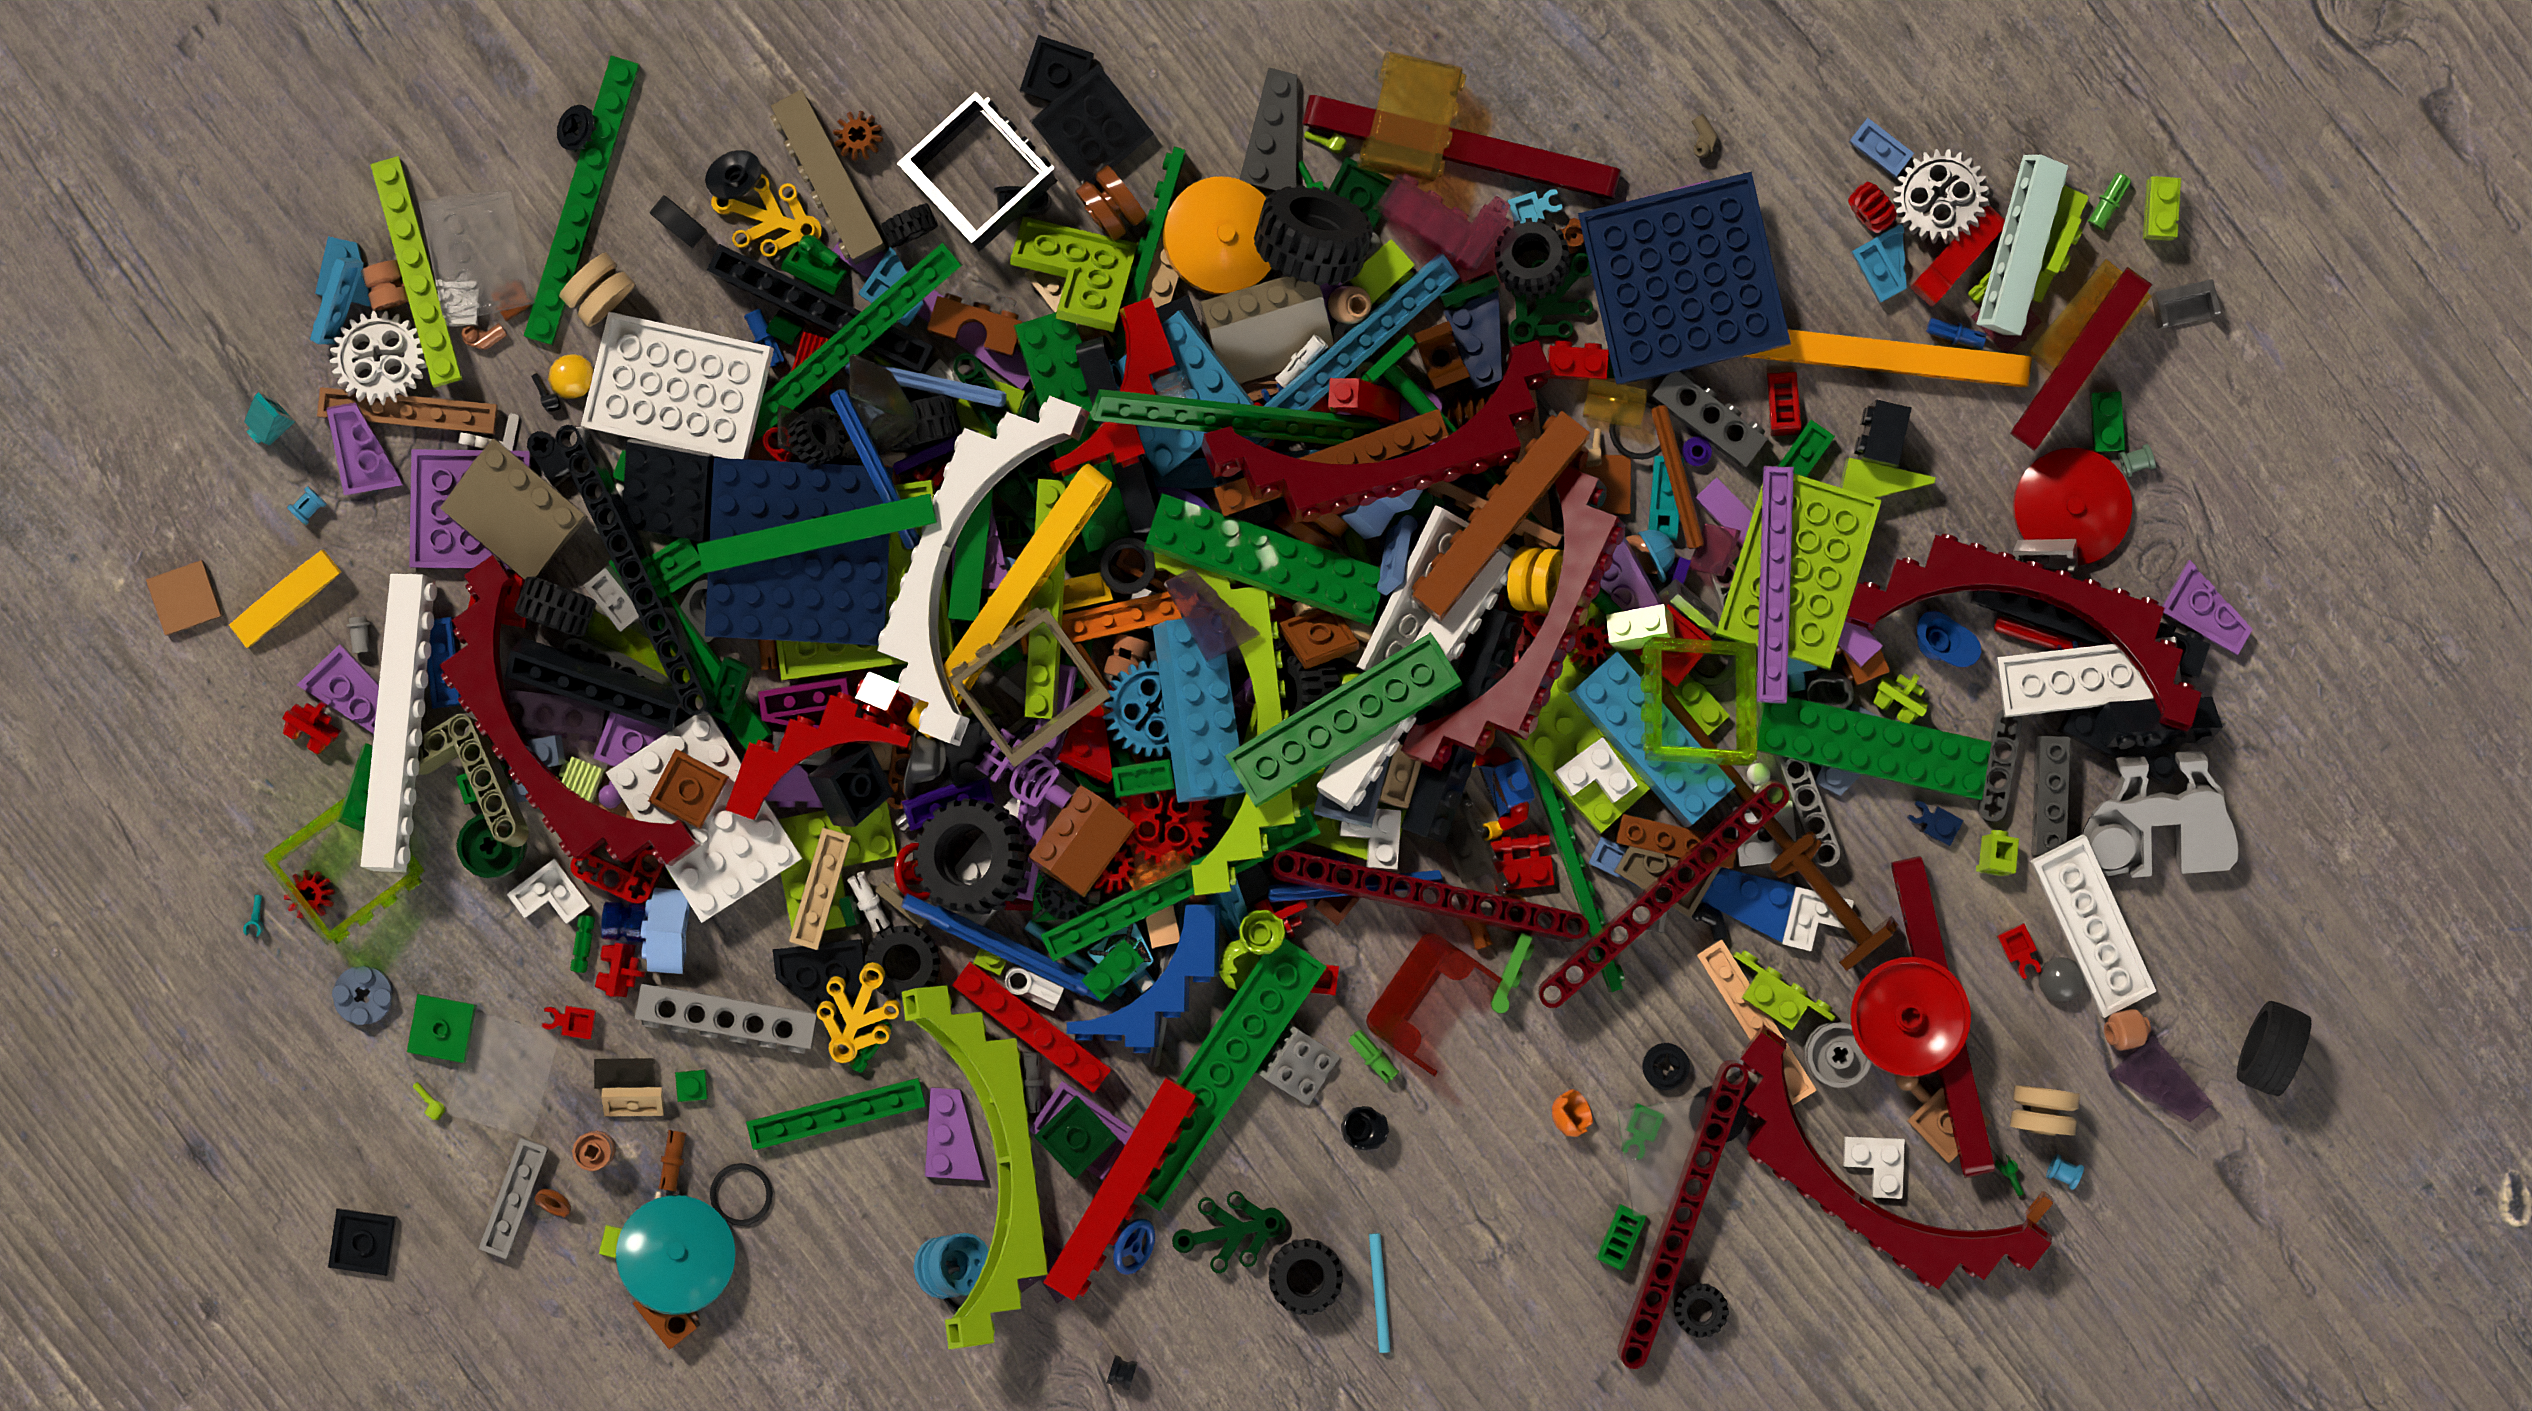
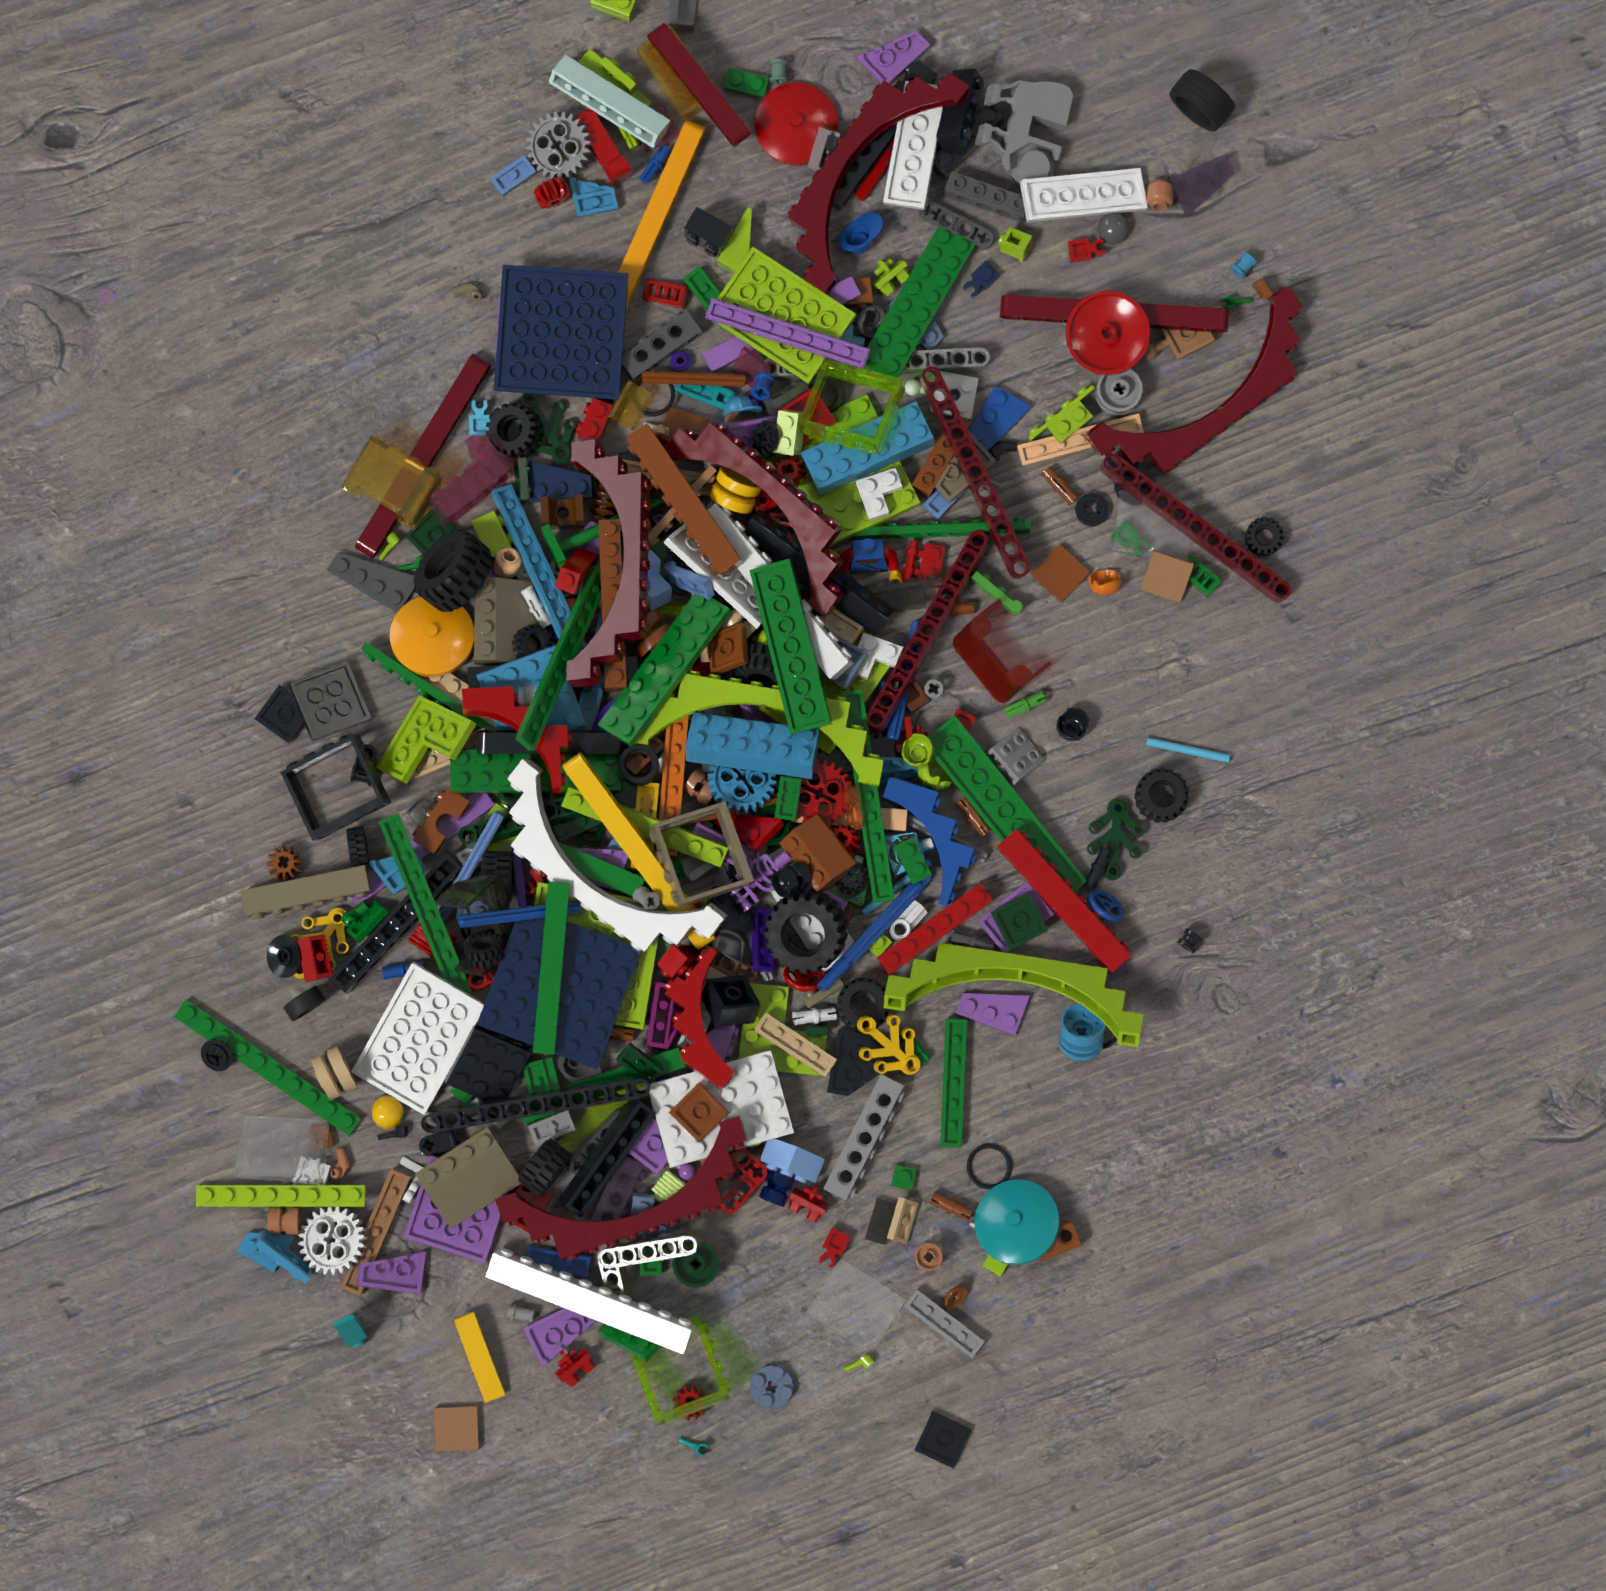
camera: 75 degrees left, 5 degrees down
(306, 505) = (419, 1322): dark azure bush -> none
(441, 1028) = (811, 1338): green plate -> none
(551, 885) = (735, 1233): white plate -> none
(582, 943) = (782, 1223): green axle -> none
(740, 216) = (315, 958): none -> red brick
(785, 327) = (400, 953): dark green tile -> none
(951, 626) = (644, 897): none -> light grey bush
(1033, 816) = (791, 879): none -> black wheel
(1108, 205) = (386, 703): dark orange wheel -> none
(1183, 1221) = (1098, 867): none -> black pin
(1199, 1033) = (973, 817): none -> dark orange pin
(1208, 617) = (692, 718): wing -> none
(1252, 357) = (530, 631): none -> black tyre
(1345, 928) = (934, 683): none -> light grey bush
(1566, 1049) = (1060, 573): none -> dark orange tile
(1573, 227) = (501, 396): dark orange plate -> none
(1605, 1195) = (1167, 576): none -> medium nougat tile
(1628, 603) = (770, 432): none -> black gear
(1696, 996) = (1049, 474): none -> dark orange pin
(1699, 572) = (763, 383): none -> blue bush
(1795, 854) = (976, 376): reddish brown piece -> none
(1804, 915) = (1015, 380): white plate -> none
(1885, 1159) = (1198, 383): white plate -> none
(2044, 1111) = (1199, 265): tan wheel -> none
(2109, 201) = (597, 36): bright green axle -> none

